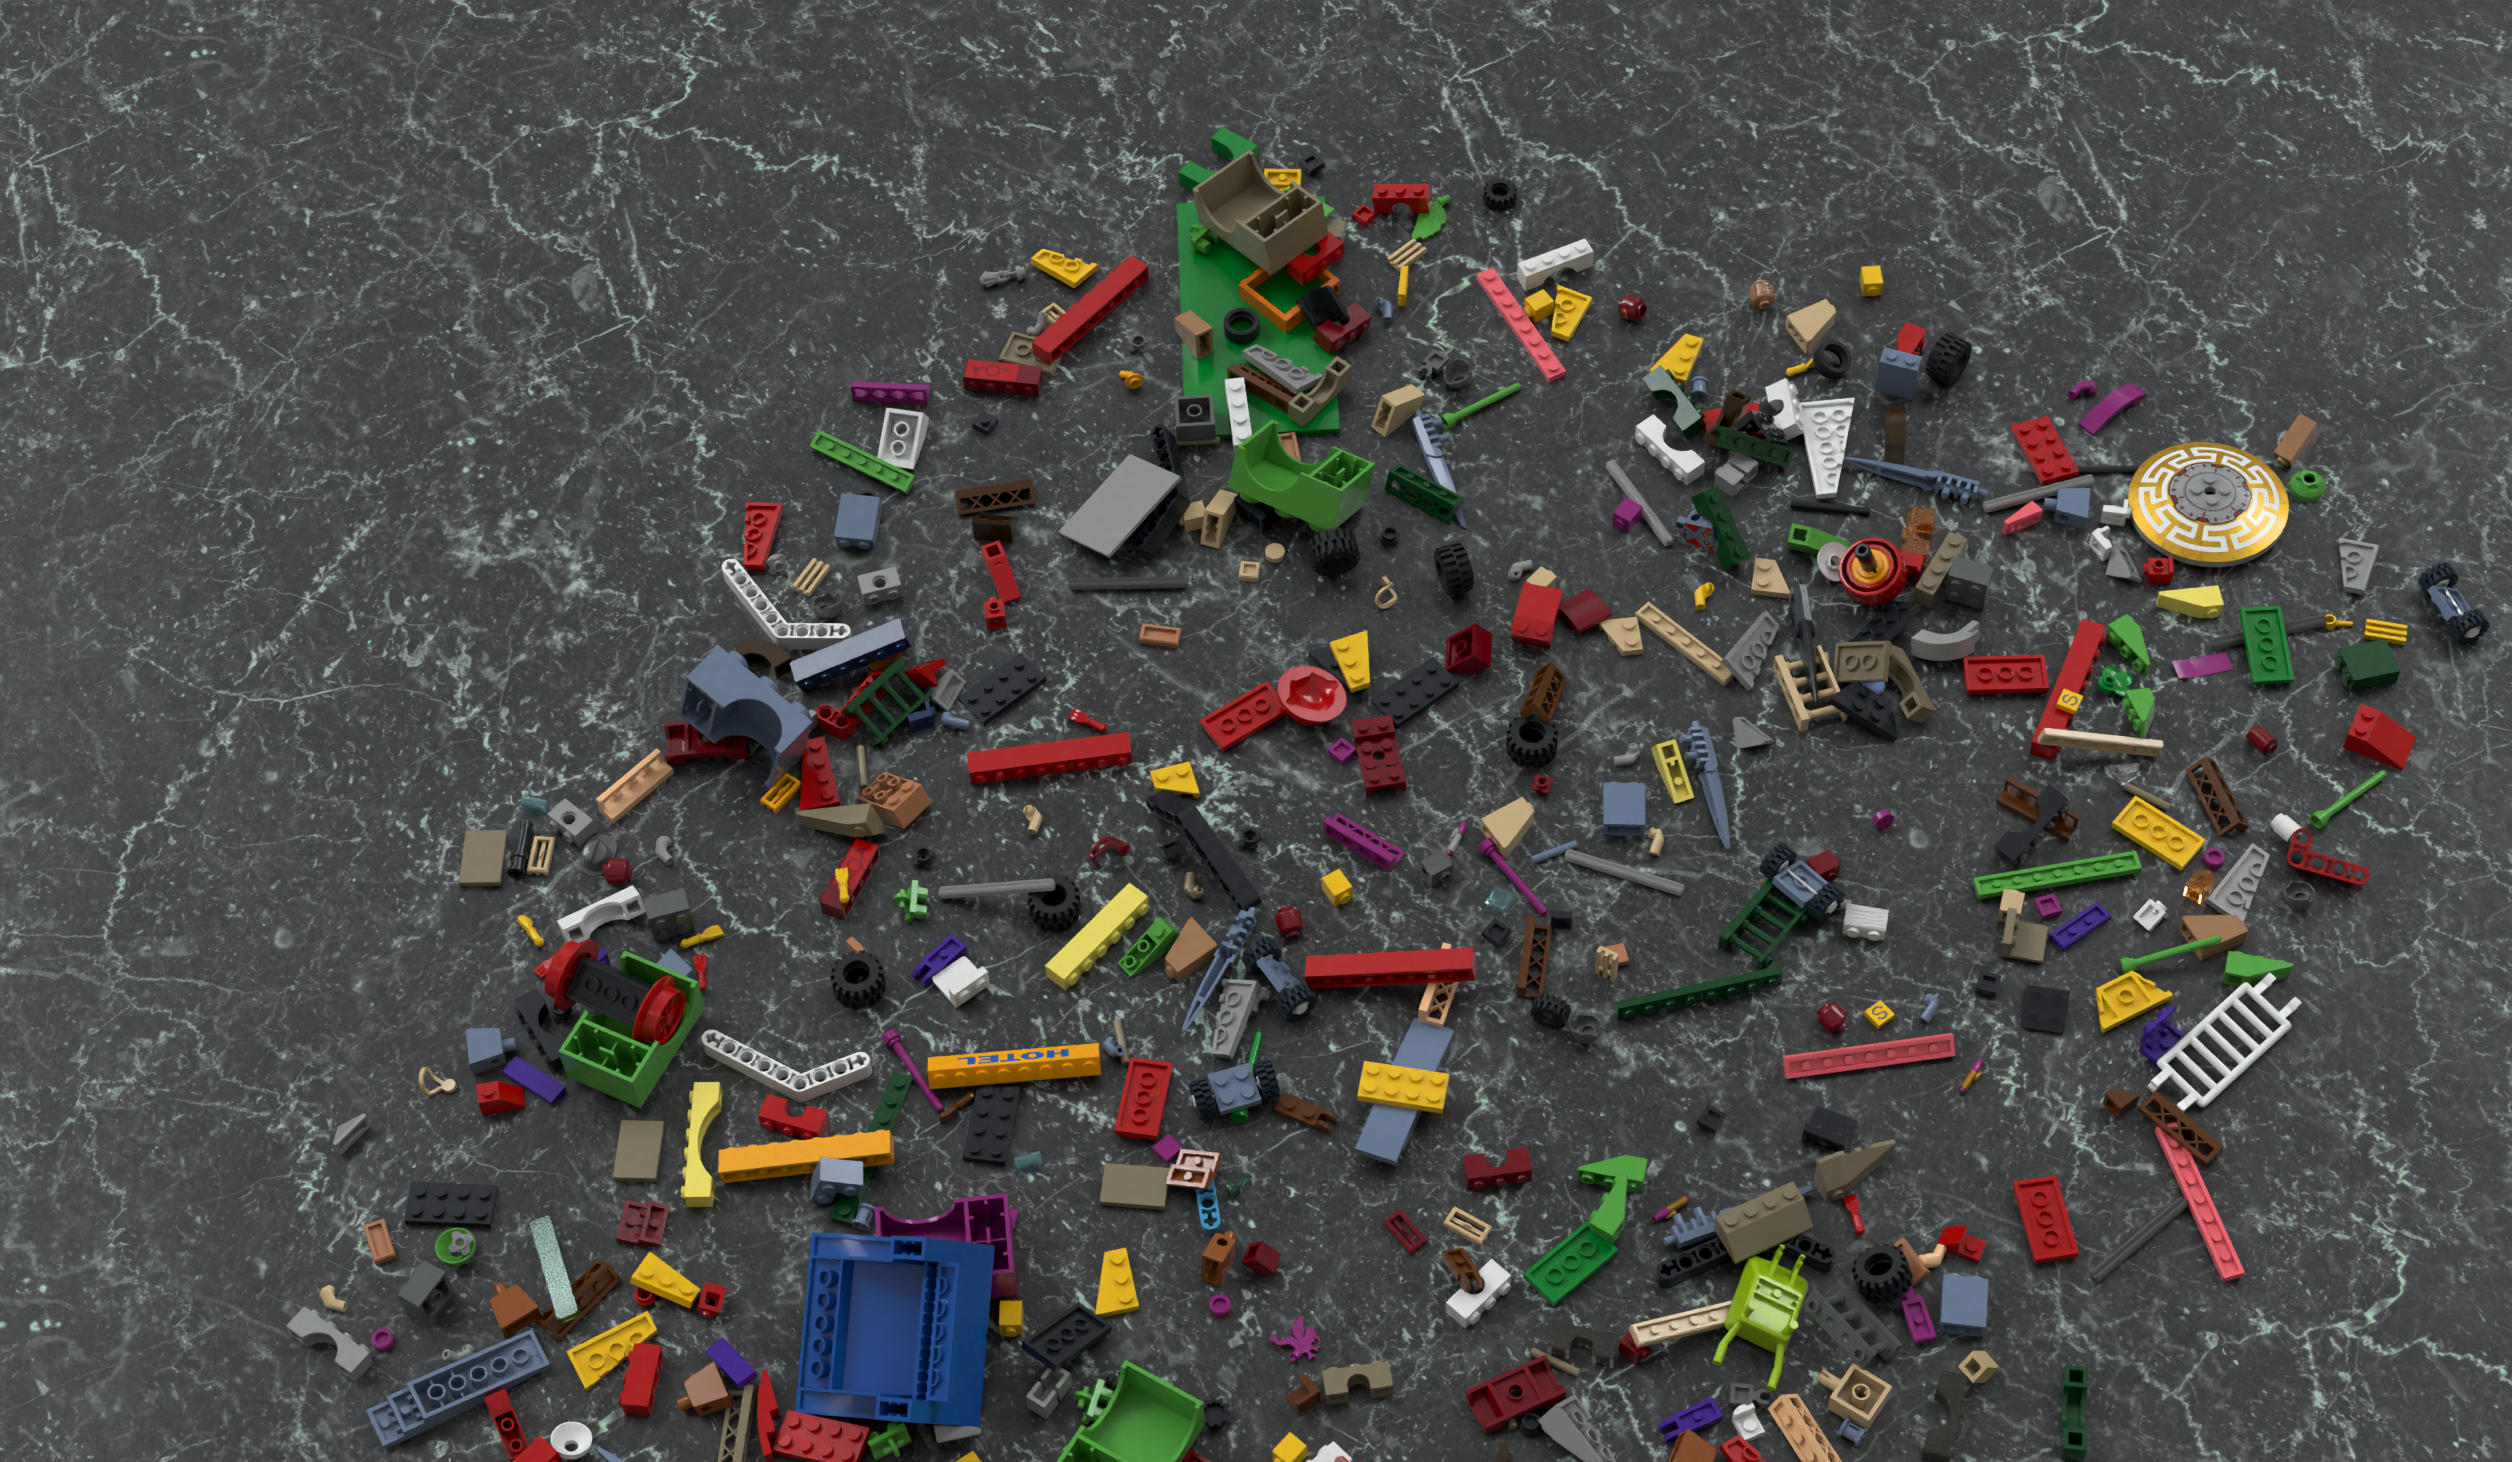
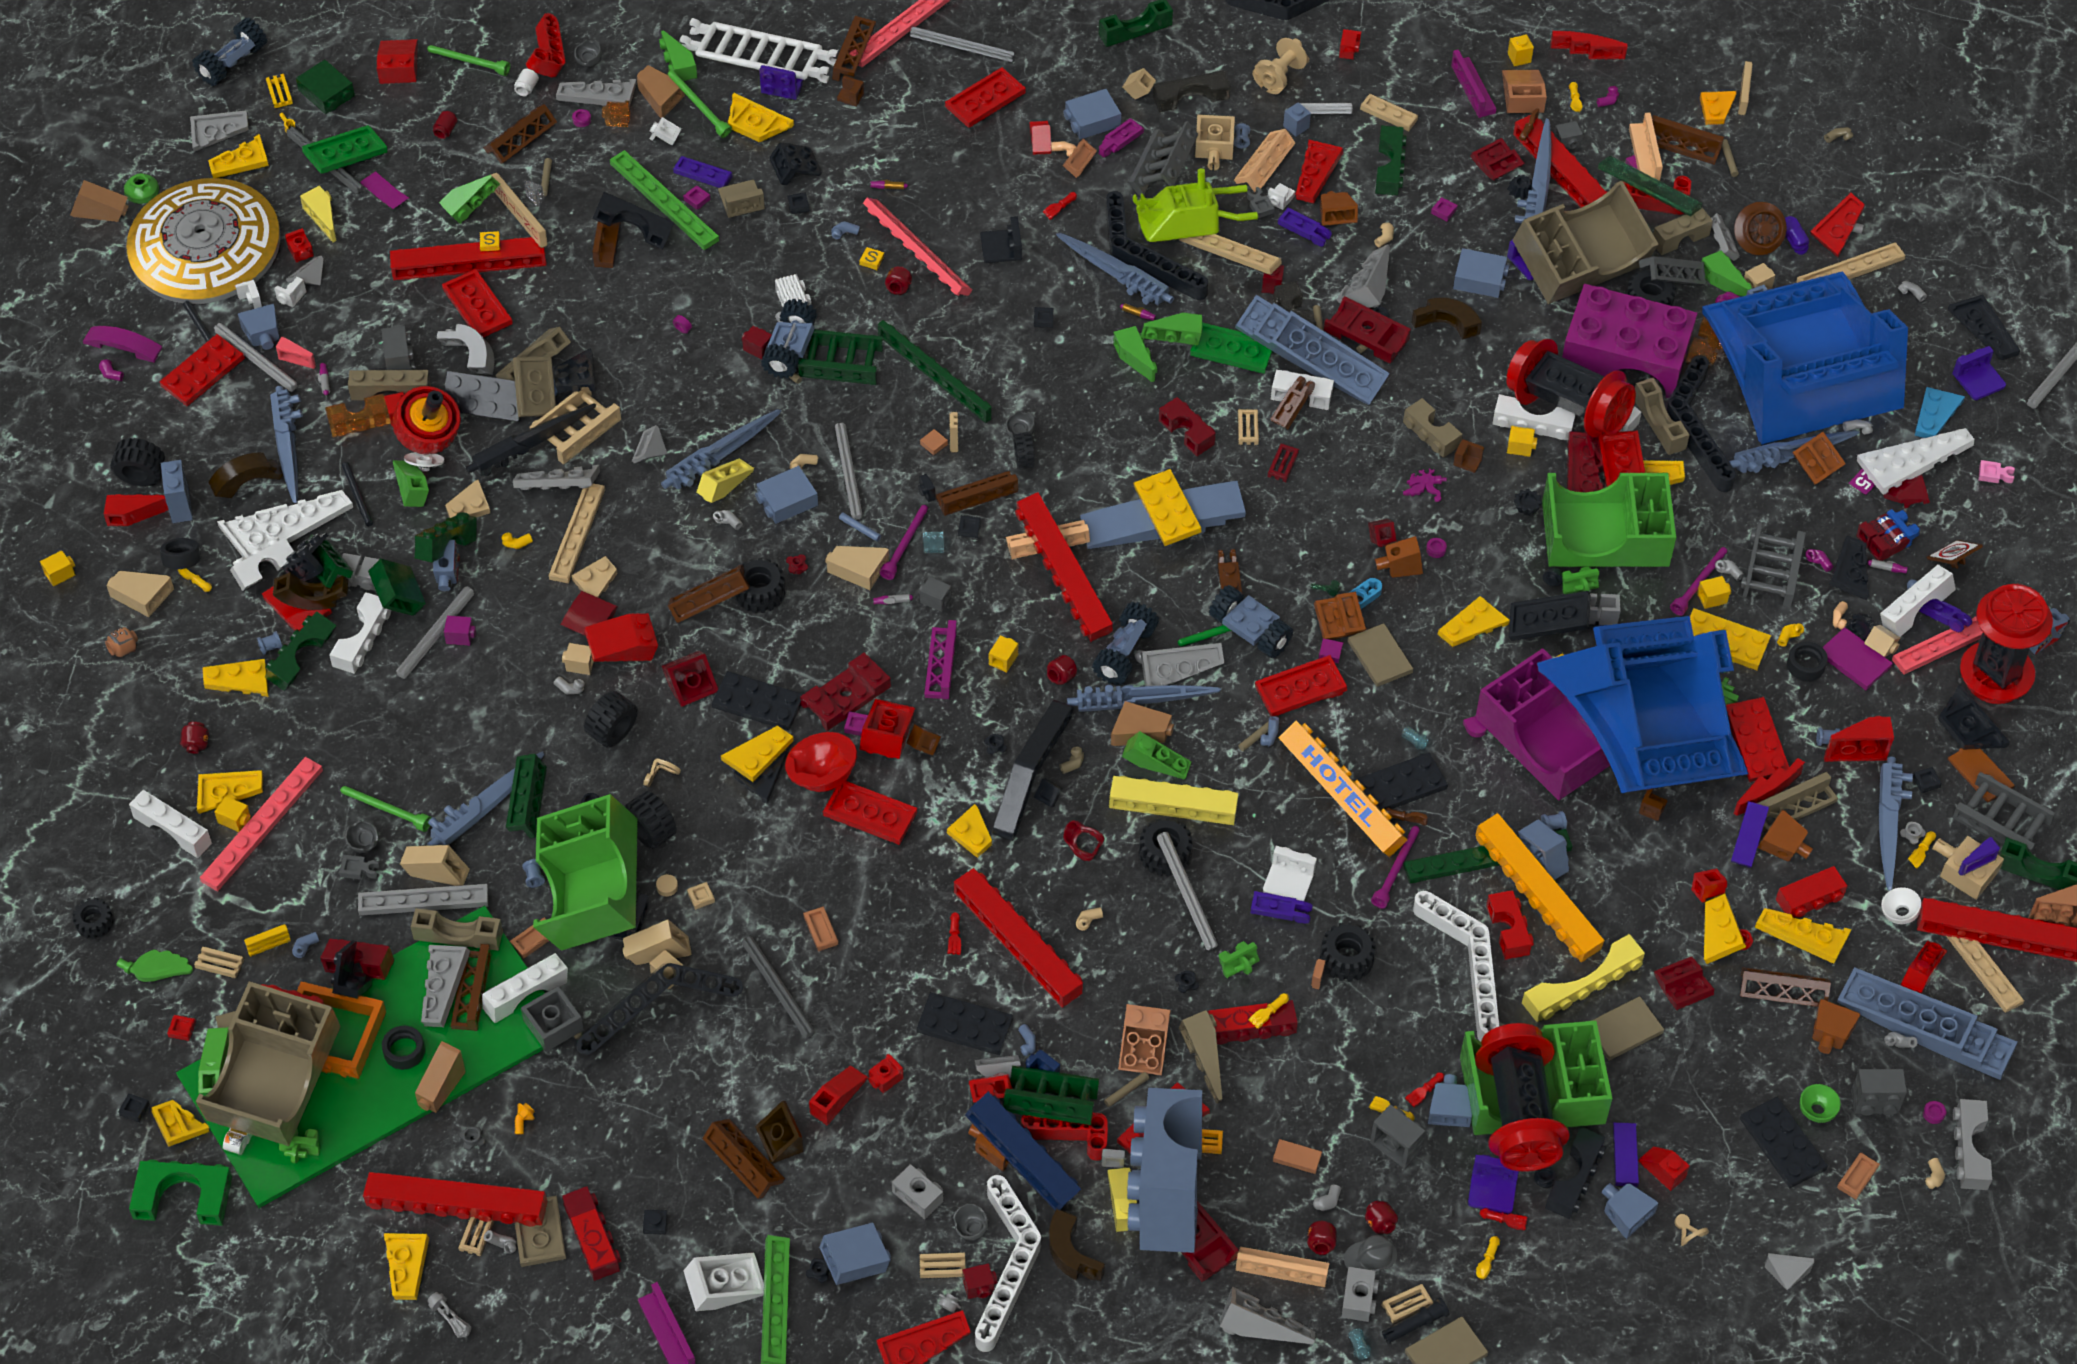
camera: 125 degrees left, 0 degrees up
(465, 1247) = (1816, 1094): light grey plate -> none
(554, 1269) = (1779, 1011): clear green tile -> none
(606, 747) = (1249, 1319): none -> light grey wedge
(621, 905) = (1410, 1185): white arch -> none
(634, 823) = (1322, 1237): none -> dark red head
(715, 850) = (1297, 1156): none -> nougat tile
(778, 588) = (979, 1281): none -> dark red brick
(1119, 505) = (699, 1025): light grey piece -> none
(1289, 787) = (923, 739): none -> reddish brown panel
(1320, 766) = (886, 728): none -> red slope
(1372, 393) = (424, 898): none -> light grey plate
(1416, 196) = (149, 992): red arch -> none
(1516, 1320) = (1311, 349): none -> sand blue slope
(1692, 479) = (396, 587): none -> dark green brick
(1763, 1222) = (1119, 237): dark tan slope -> none
(1841, 1171) = (1031, 218): dark tan wedge -> none
(1886, 1286) = (1112, 145): black tyre -> none
(1983, 532) = (323, 379): none -> piece
(2010, 899) = (715, 214): tan brick -> none
(2114, 681) = (438, 234): green plate -> none
(2128, 639) = (392, 235): bright green slope -> none
(2158, 833) = (580, 155): yellow plate -> none
(2303, 569) = (245, 158): none -> yellow wing

